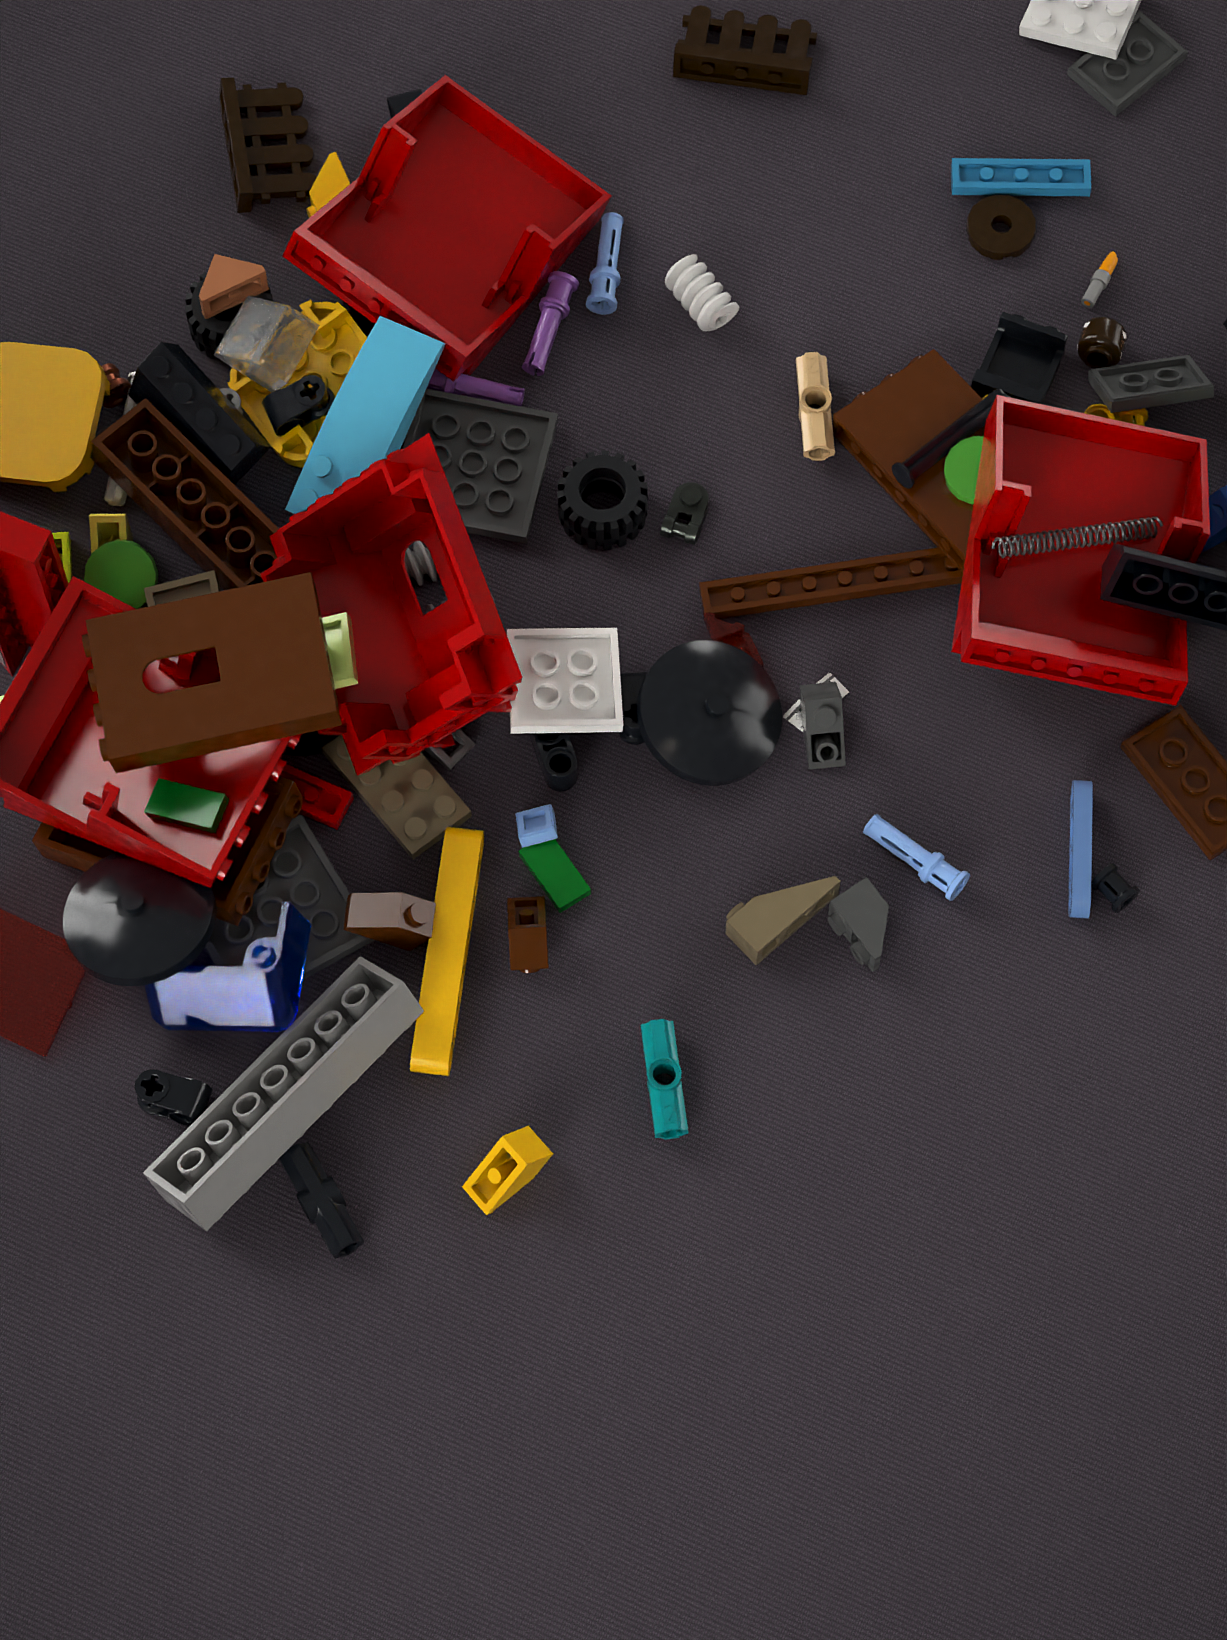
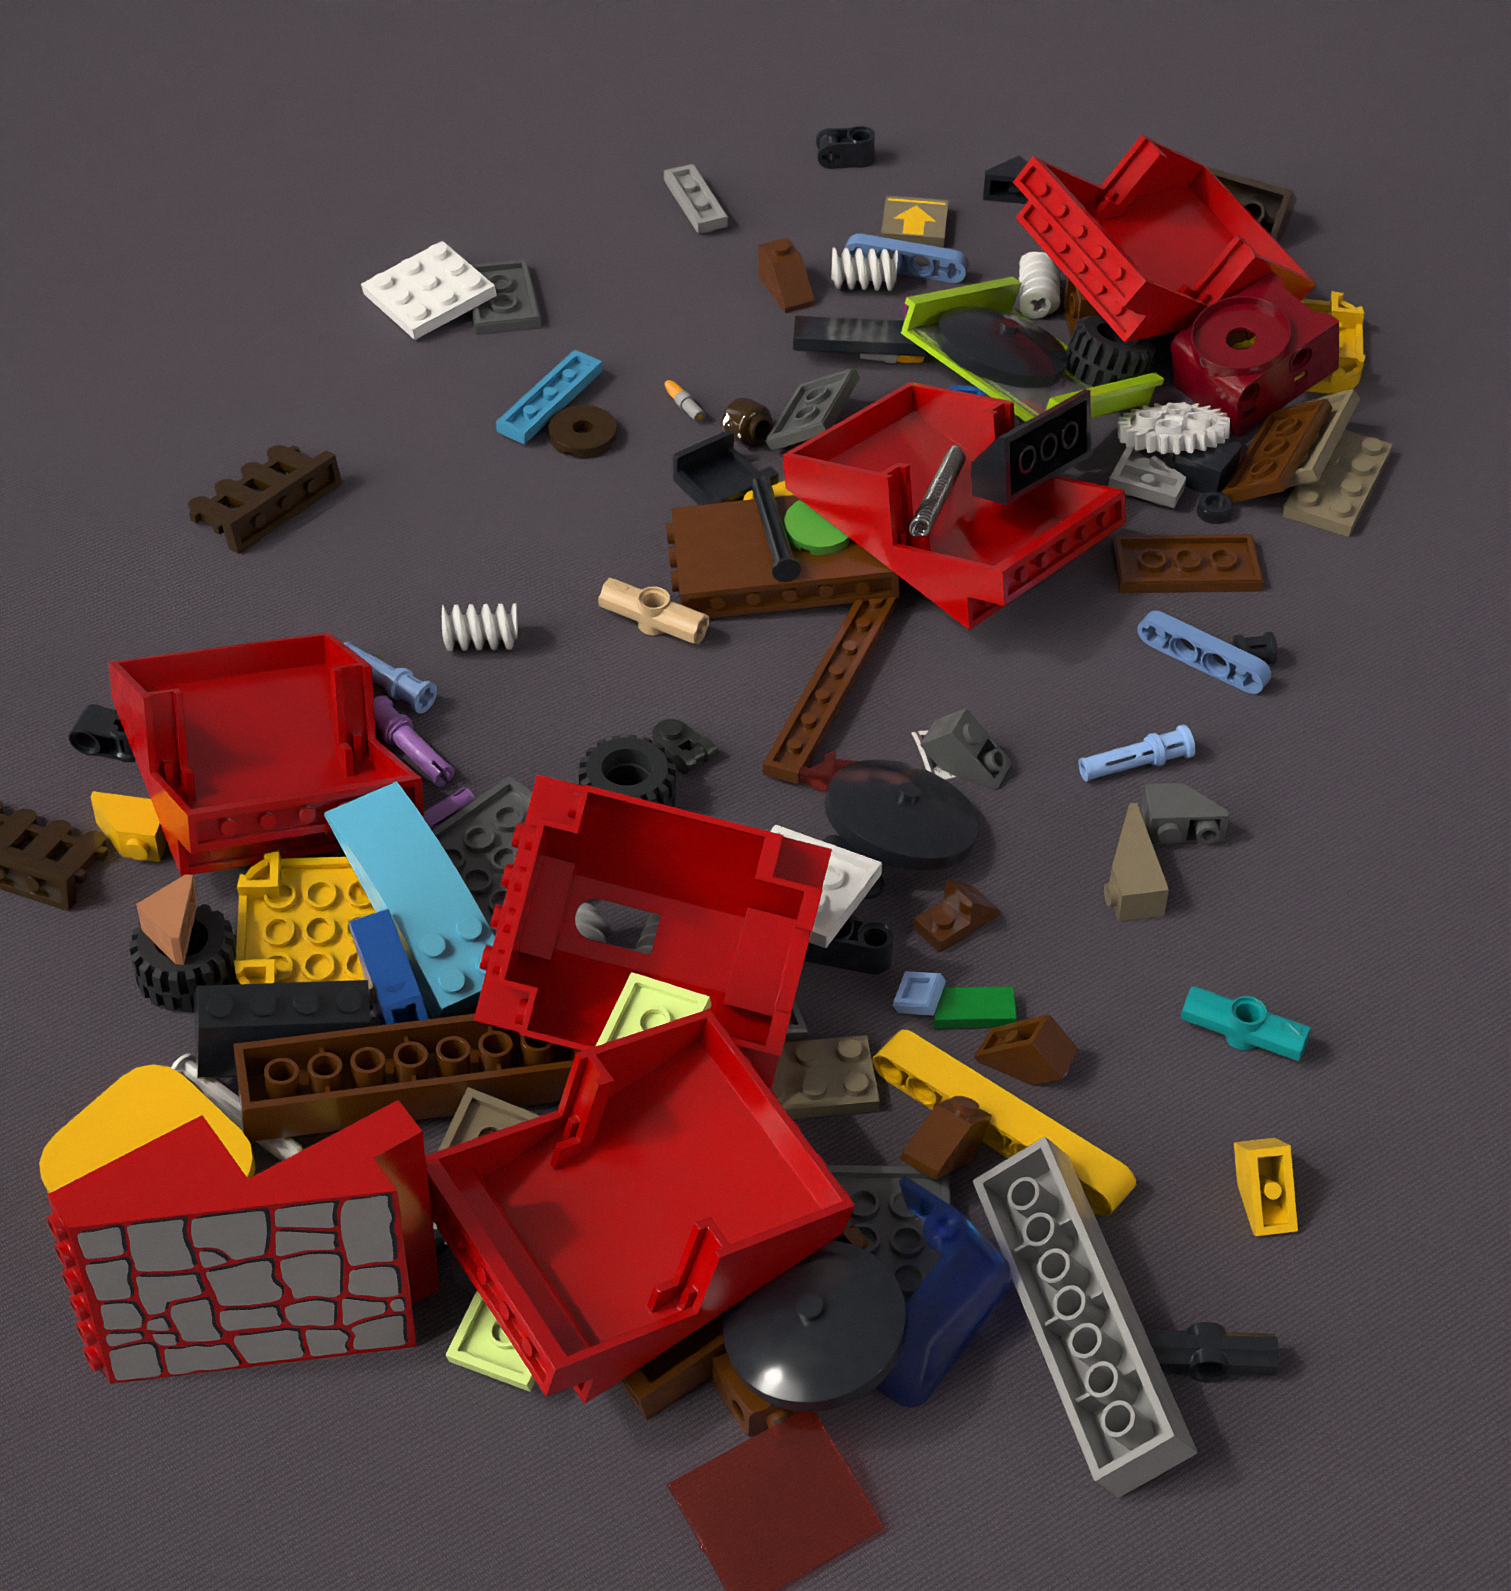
camera: 60 degrees left, 20 degrees down
(178, 1097) = (1013, 1427): black piece -> none
(186, 805) = (743, 1200): green tile -> none
(266, 341) = (262, 921): clear slope -> none
(268, 662) = (661, 1013): reddish brown panel -> none
(281, 458) = (387, 969): none -> blue slope
(297, 404) = (335, 950): black piece -> none
(643, 811) = (954, 917): none -> reddish brown slope

